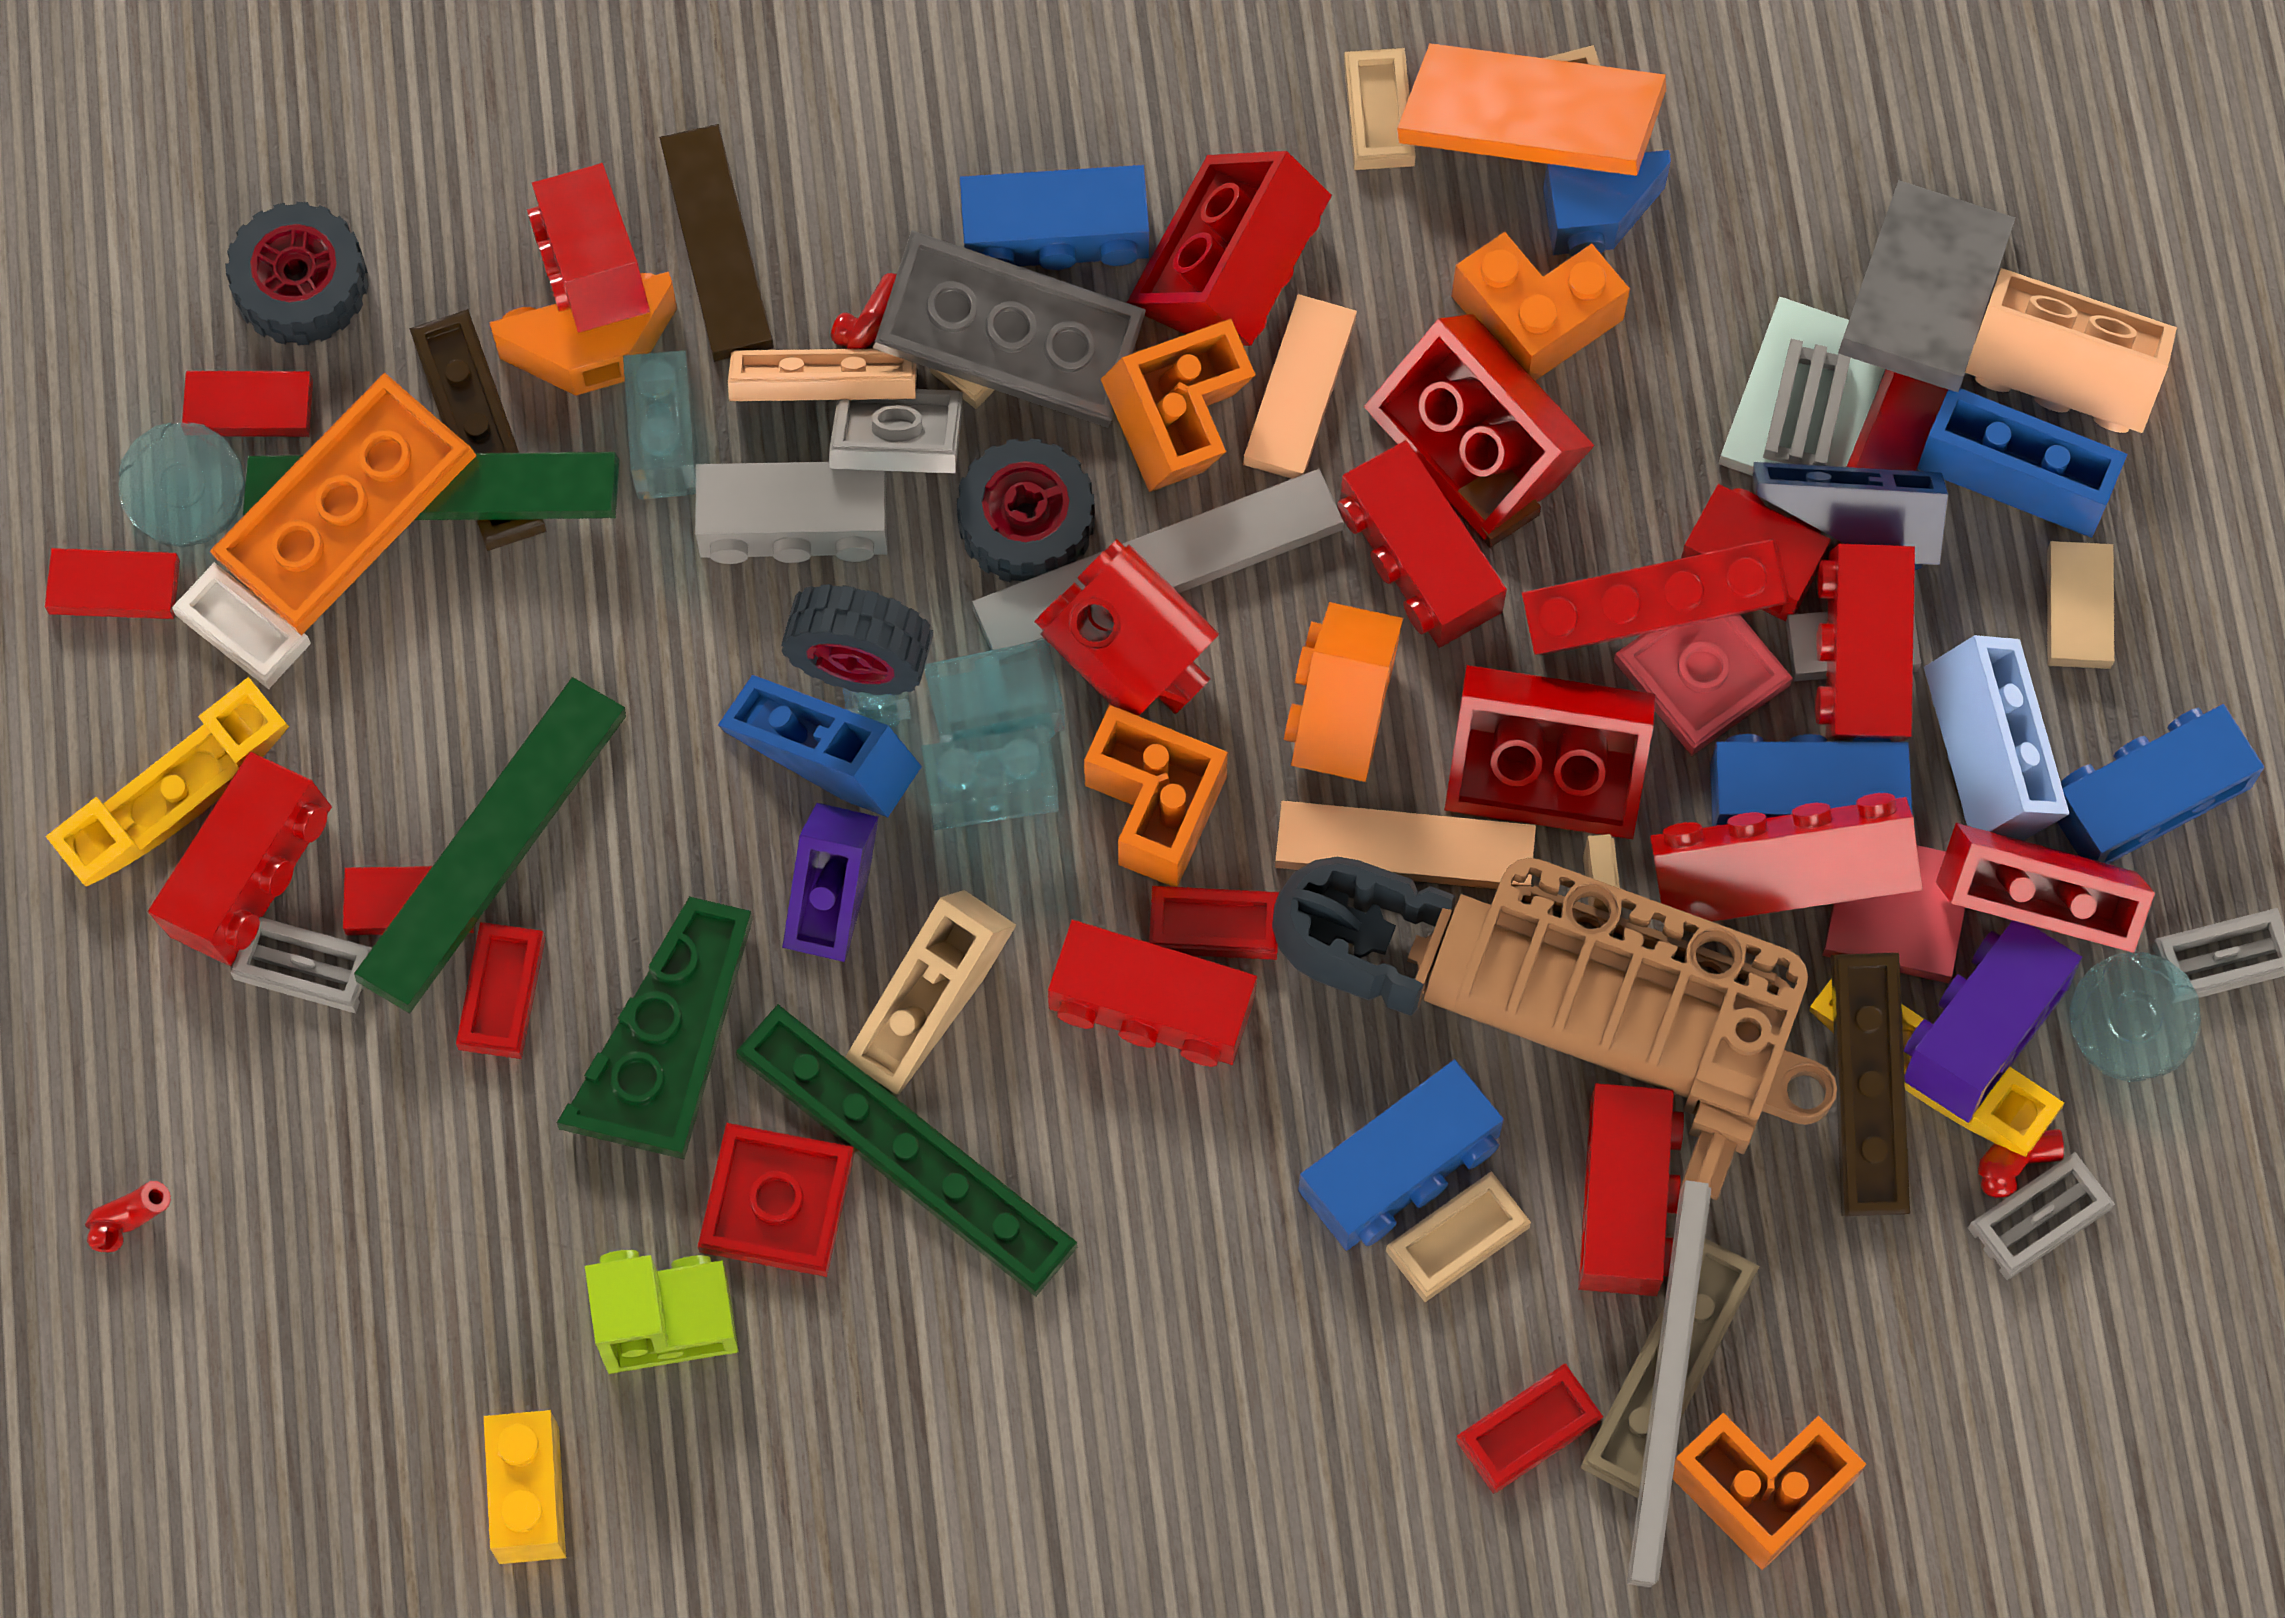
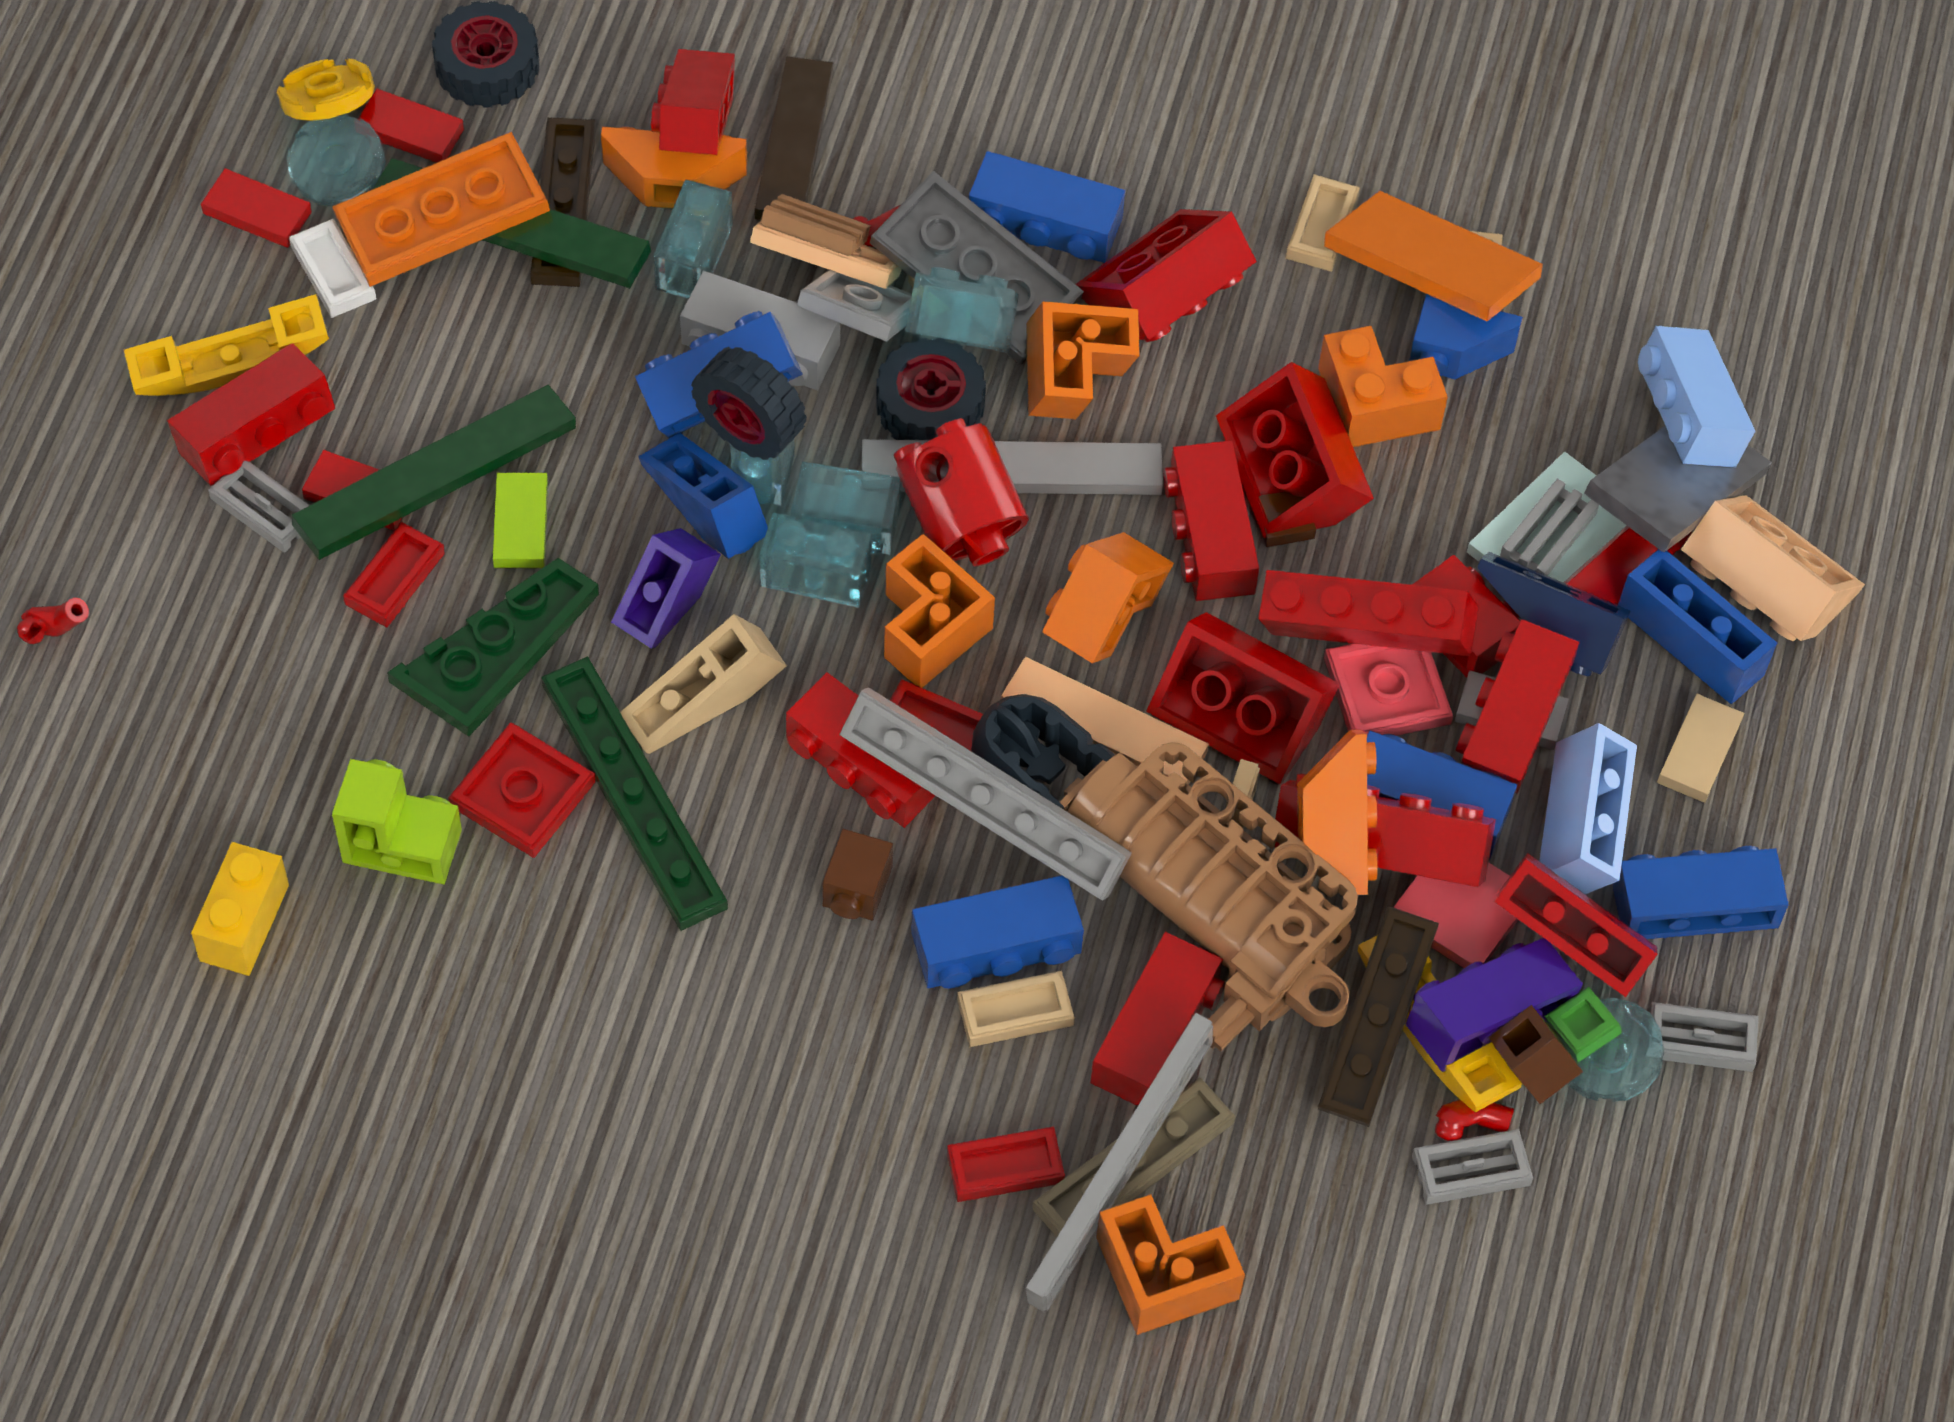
camera: 20 degrees right, 10 degrees down
(127, 399) = (325, 90): none -> yellow tile
(618, 862) = (520, 520): none -> lime tile
(752, 614) = (669, 379): none -> blue brick
(799, 350) = (815, 225): none -> medium nougat tile
(1024, 396) = (962, 310): none -> clear light blue brick
(1213, 1152) = (857, 875): none -> reddish brown brick
(1300, 387) = (1174, 385): light nougat tile -> none
(1325, 1002) = (985, 793): none -> light grey tile
(1738, 866) = (1338, 812): none -> orange slope
(1905, 174) = (1695, 396): none -> light blue brick
(2065, 1063) = (1535, 1054): none -> reddish brown brick
(2097, 1000) = (1583, 1024): none -> bright green tile

